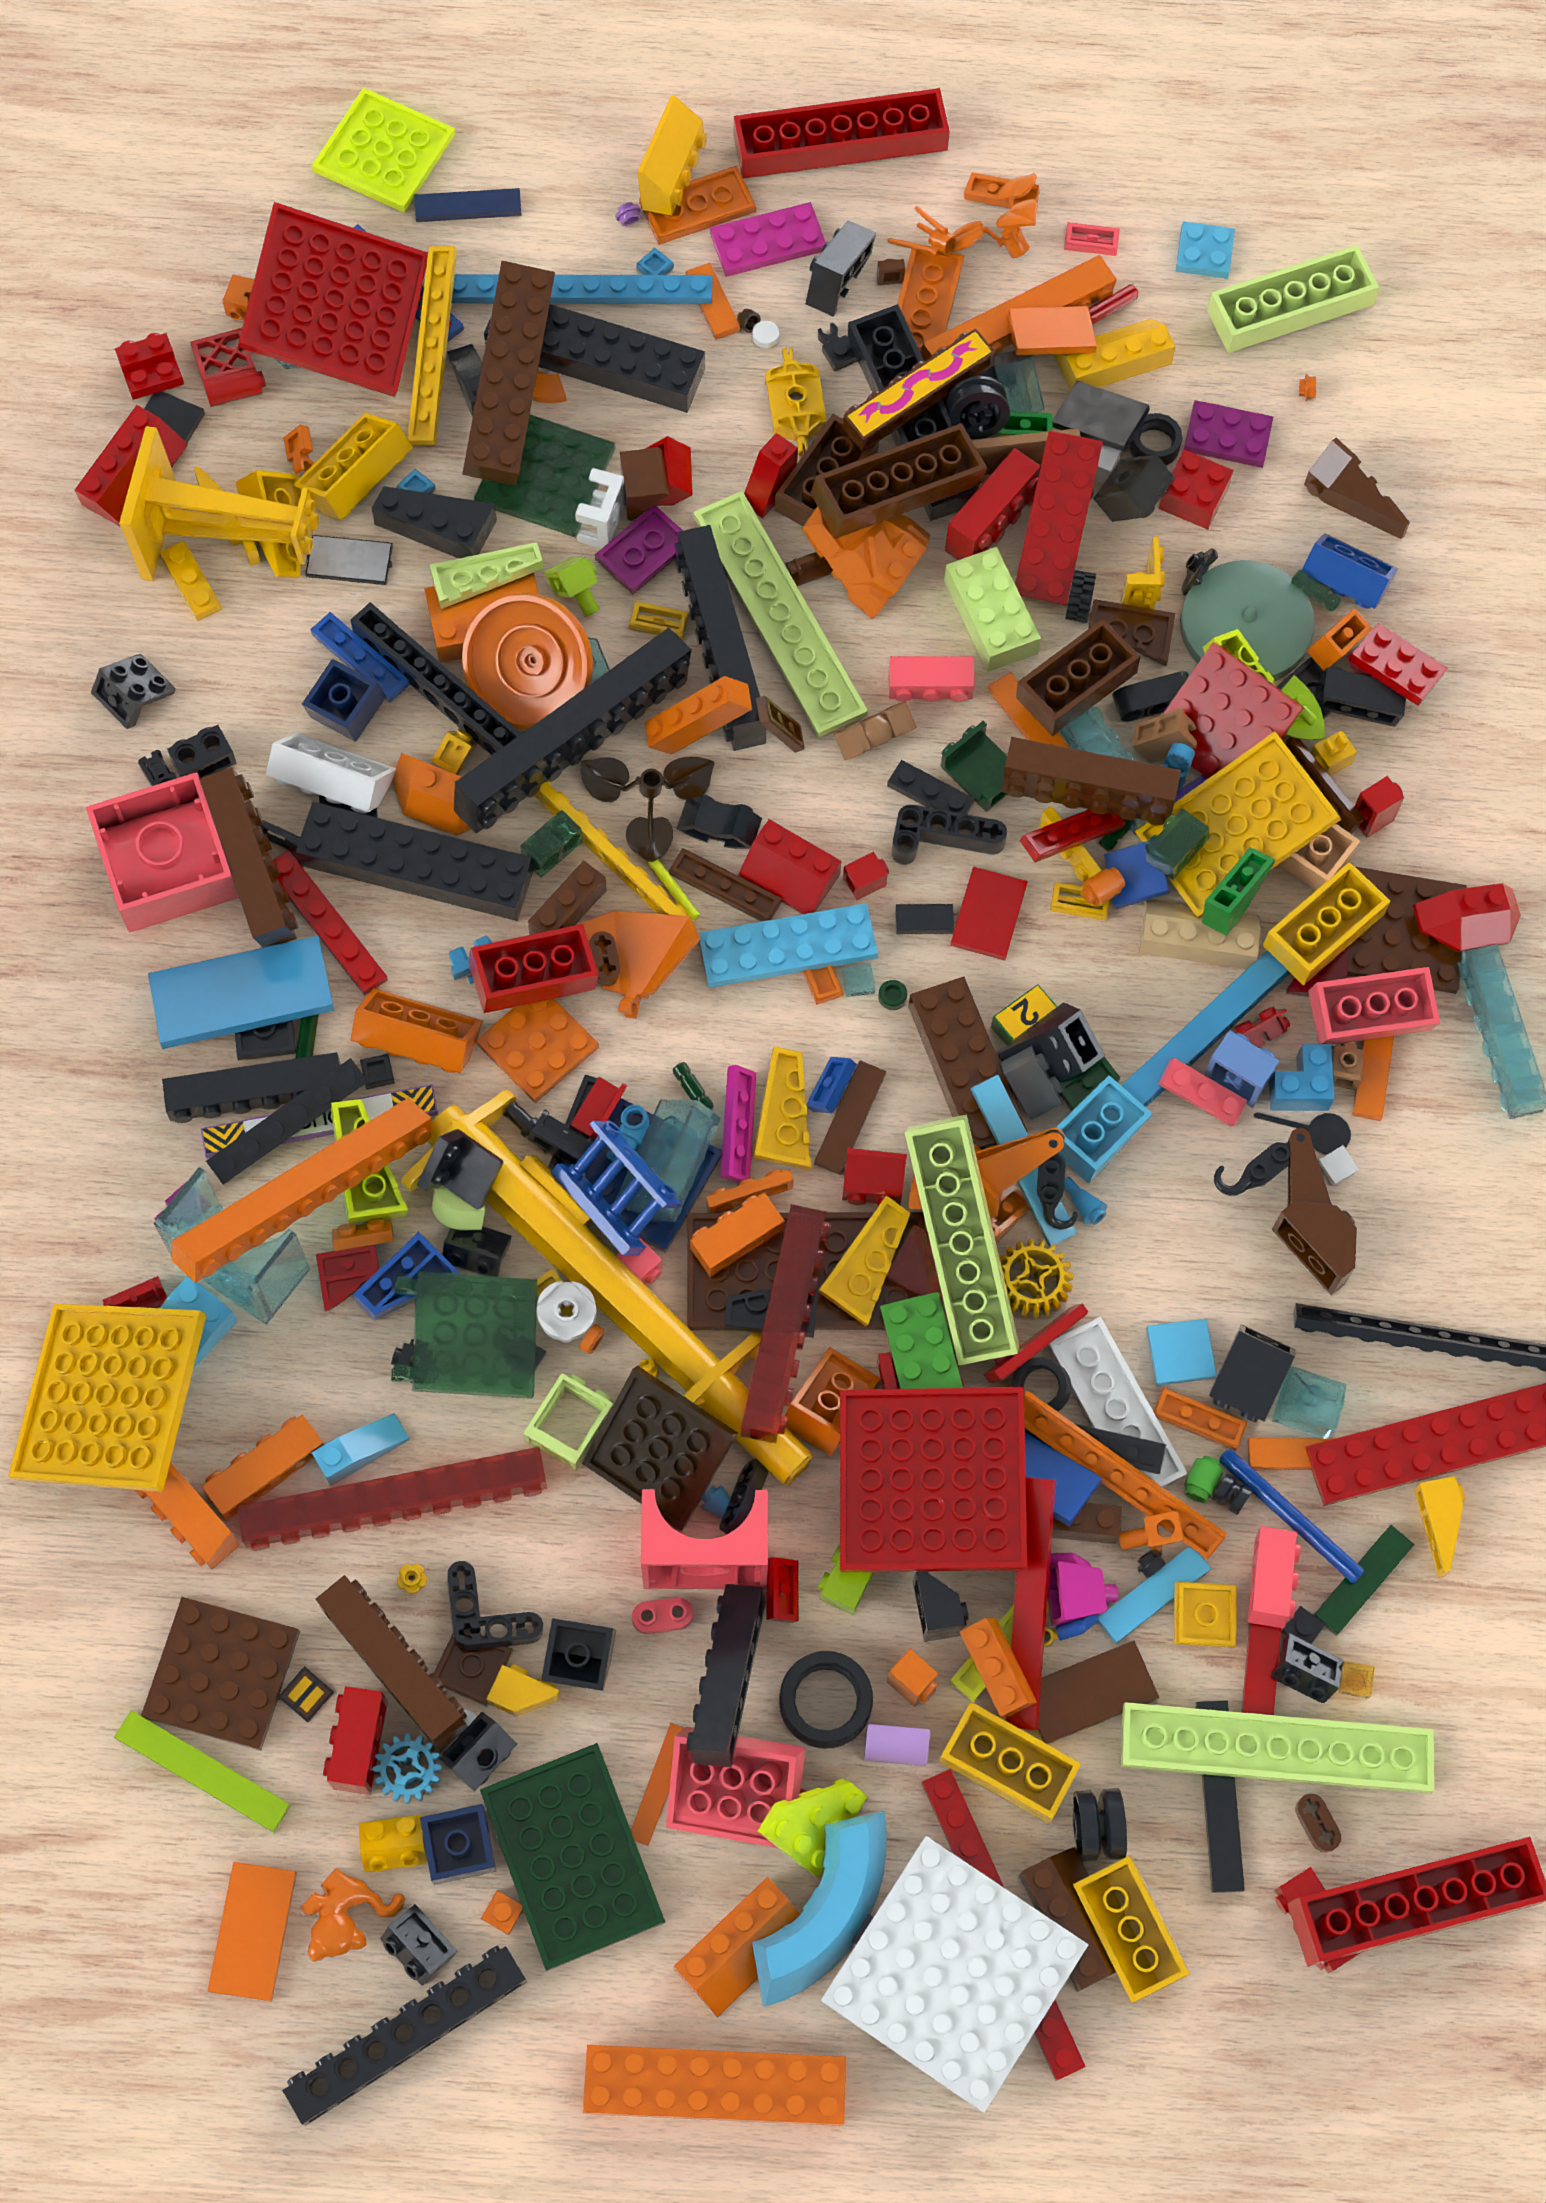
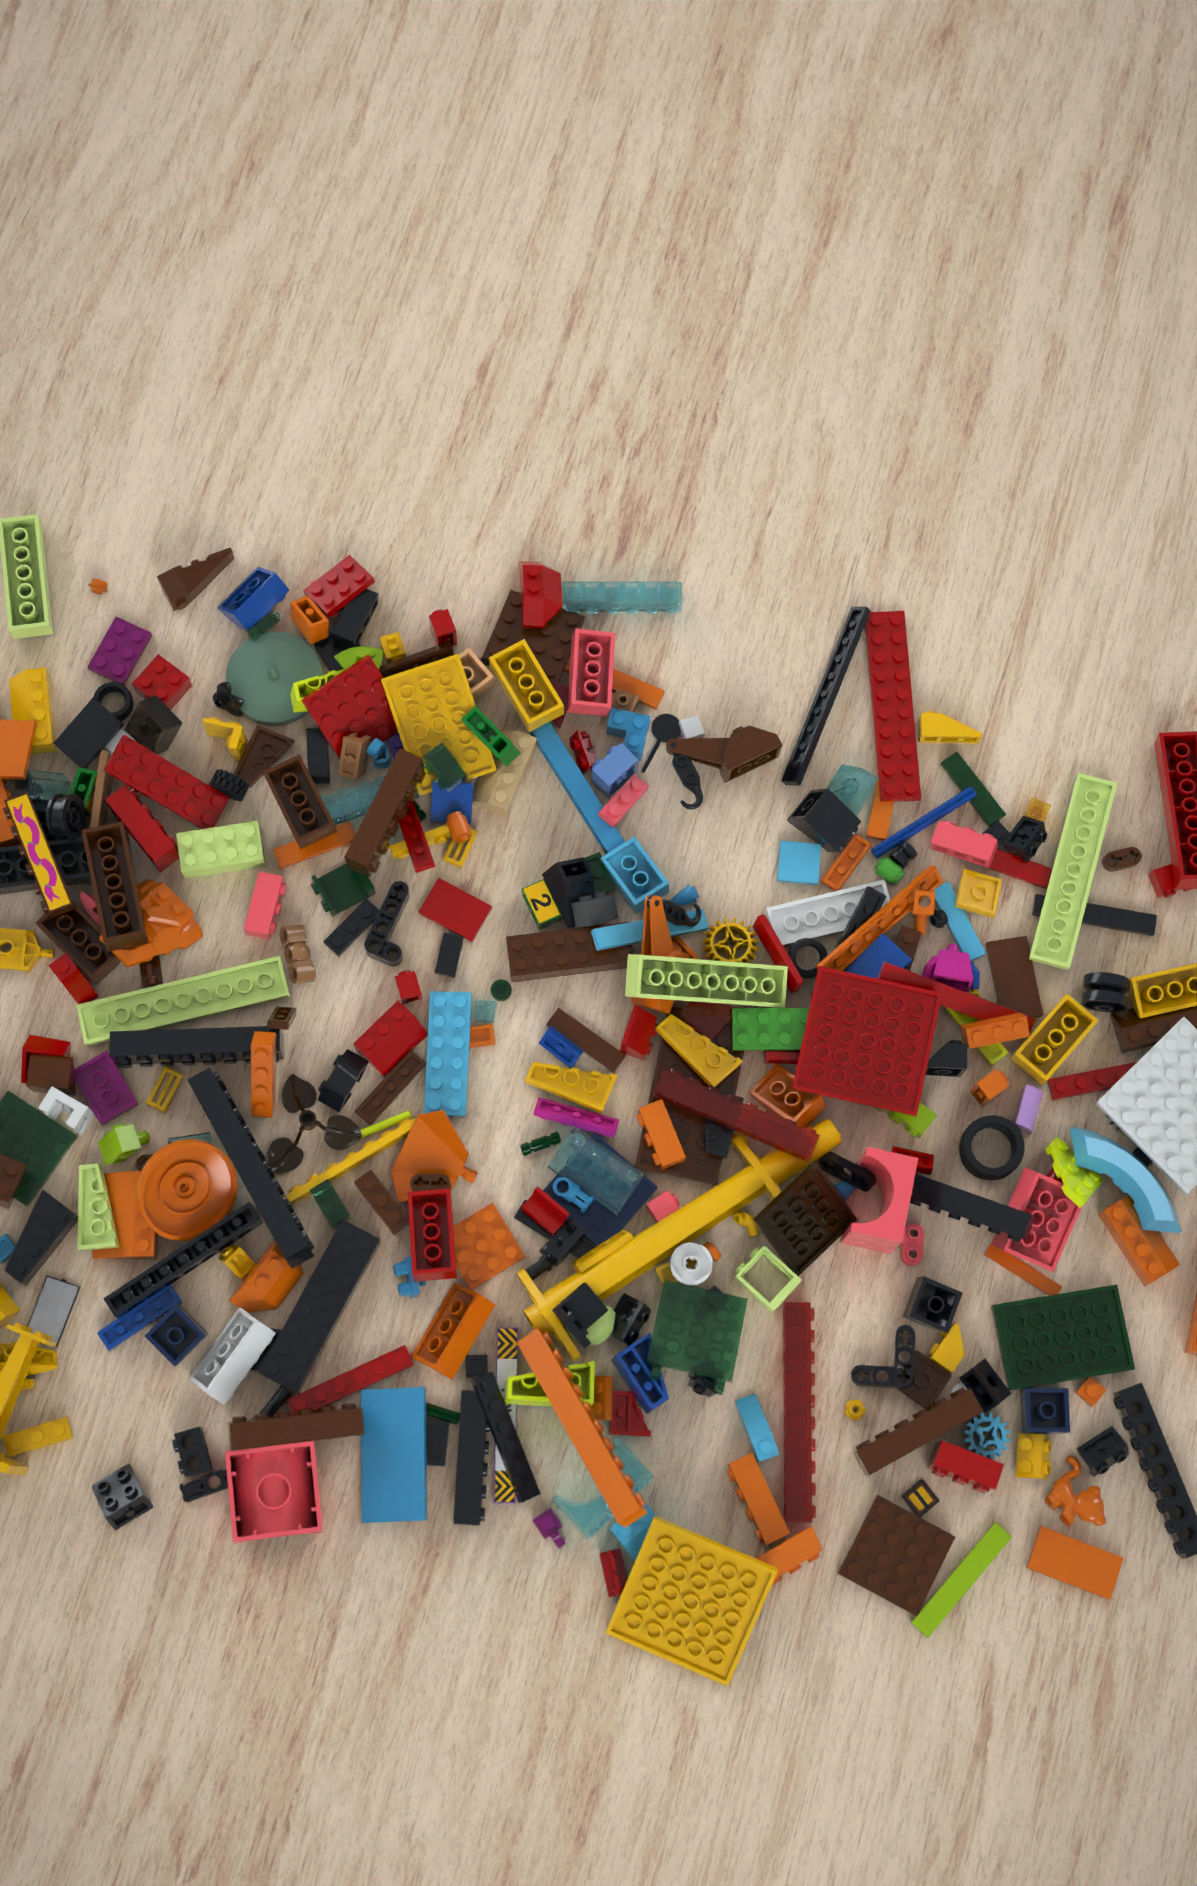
camera: 80 degrees left, 5 degrees up
(591, 1198) = (615, 1228): blue fence -> none
(774, 1183) = (626, 1121): orange plate -> none

